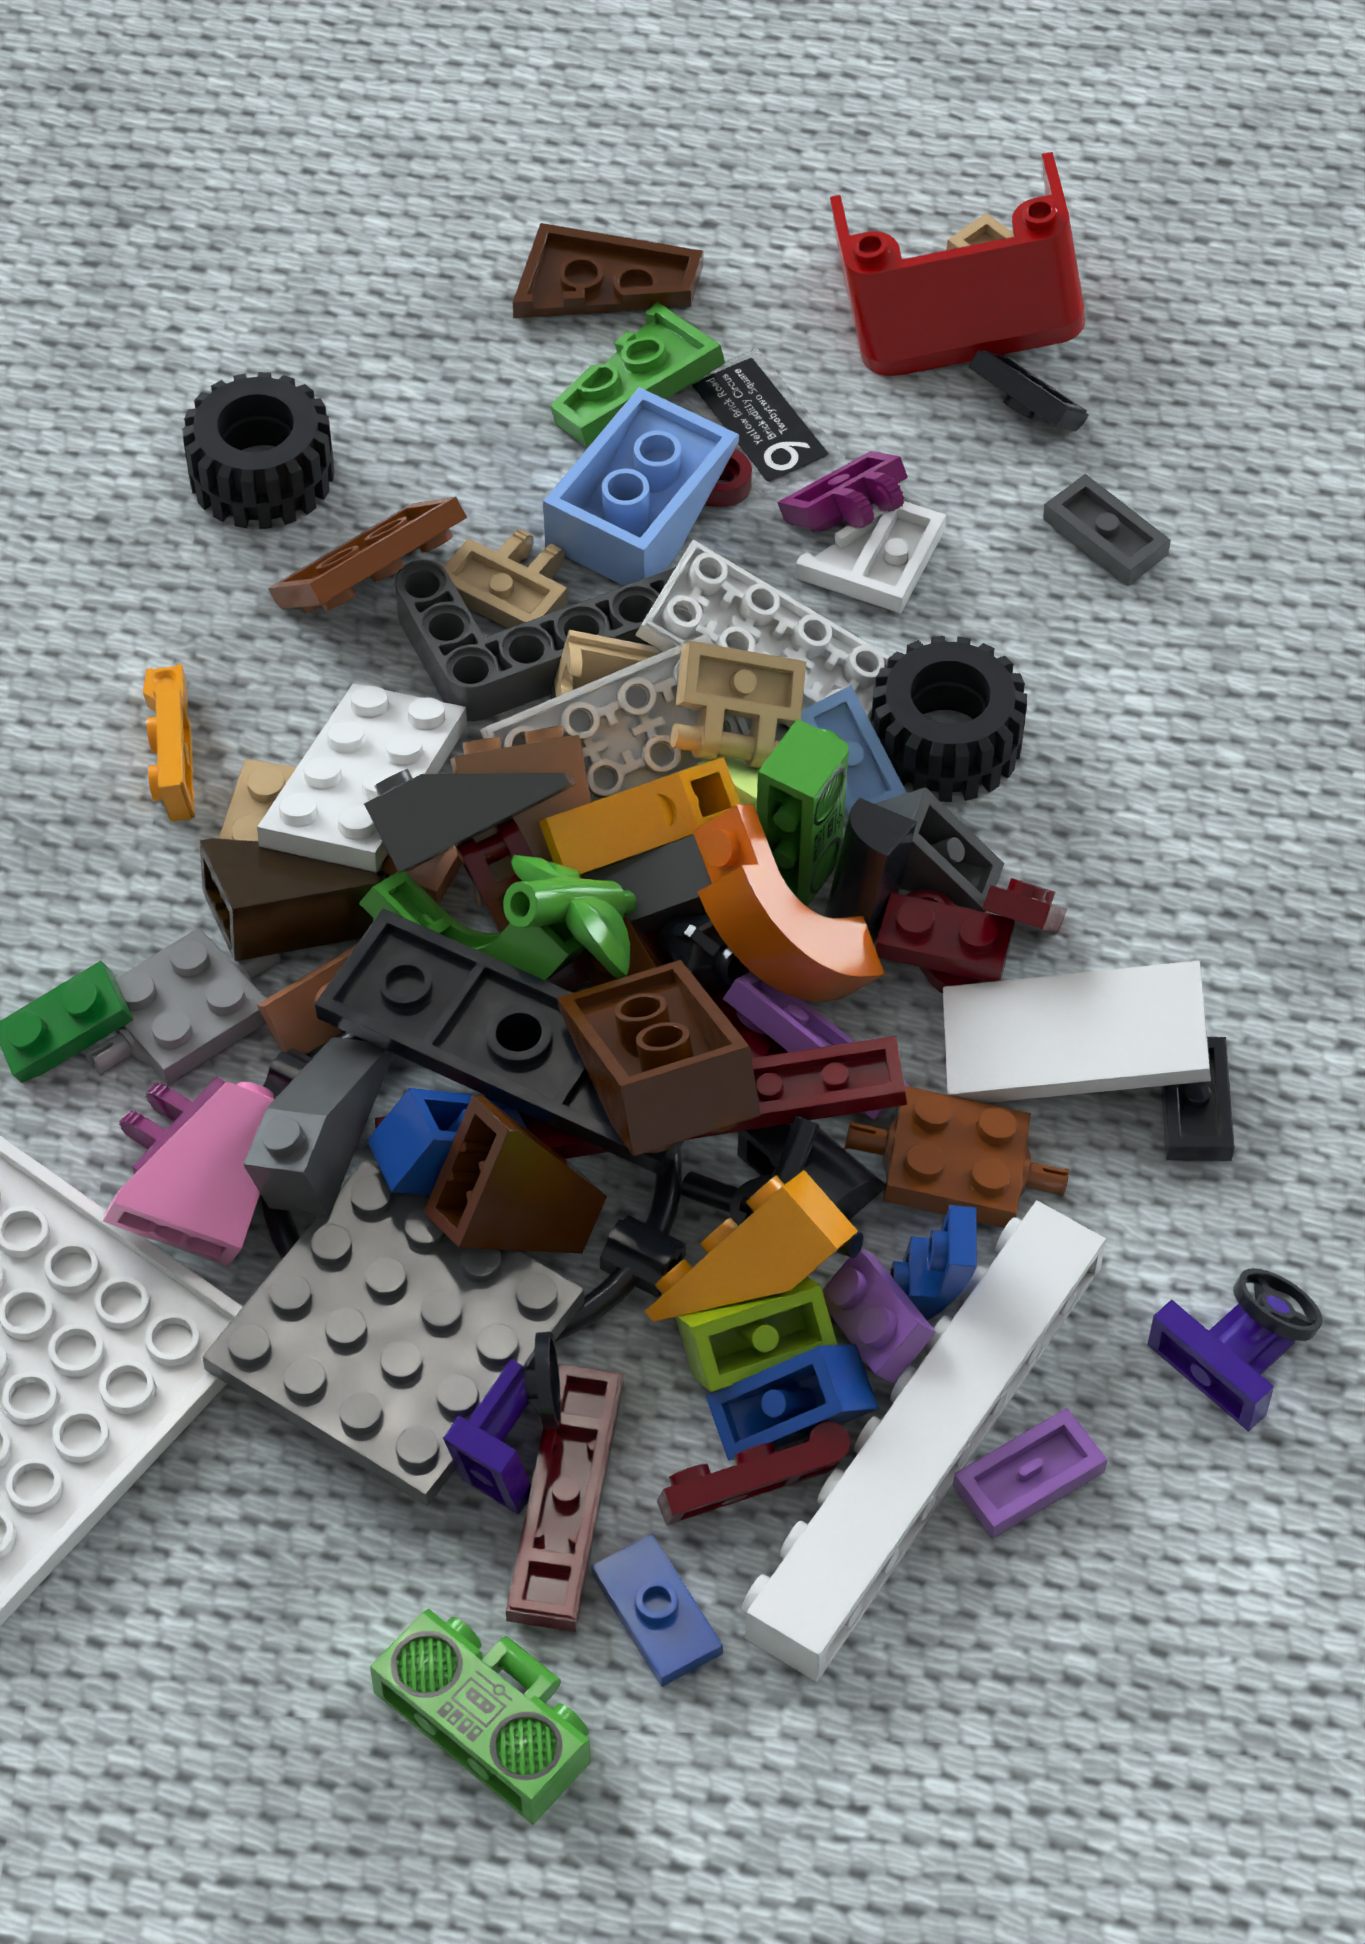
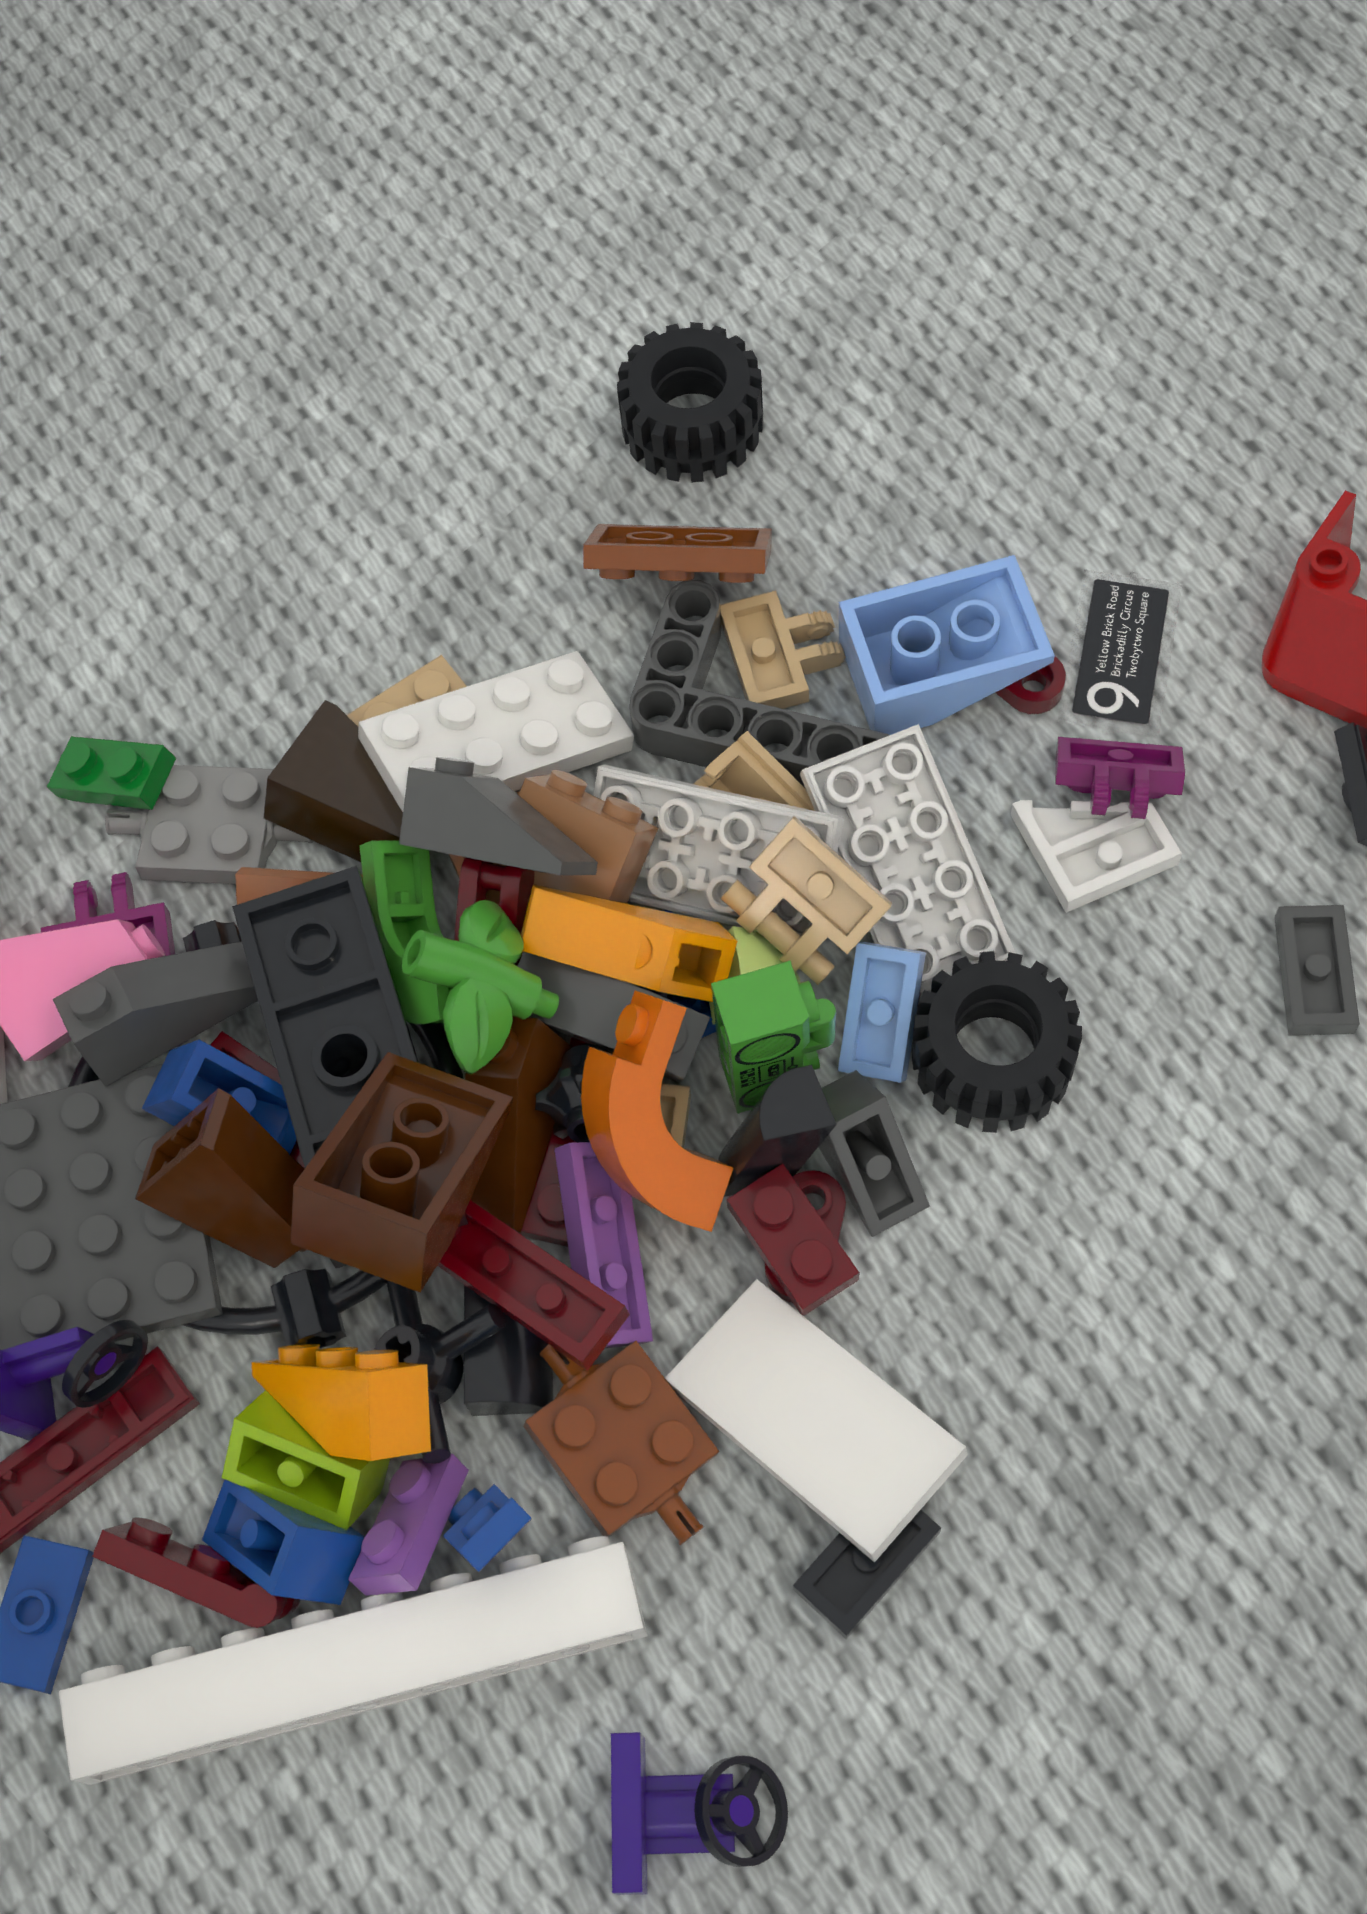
camera: 50 degrees right, 10 degrees up
(172, 741) = (402, 601): light orange hinge -> none
(601, 273) = (1115, 431): reddish brown wing -> none
(658, 358) = (1063, 543): bright green wing -> none
(1026, 904) = (878, 1269): dark red plate -> none
(1029, 1473) = (402, 1768): medium lavender plate -> none

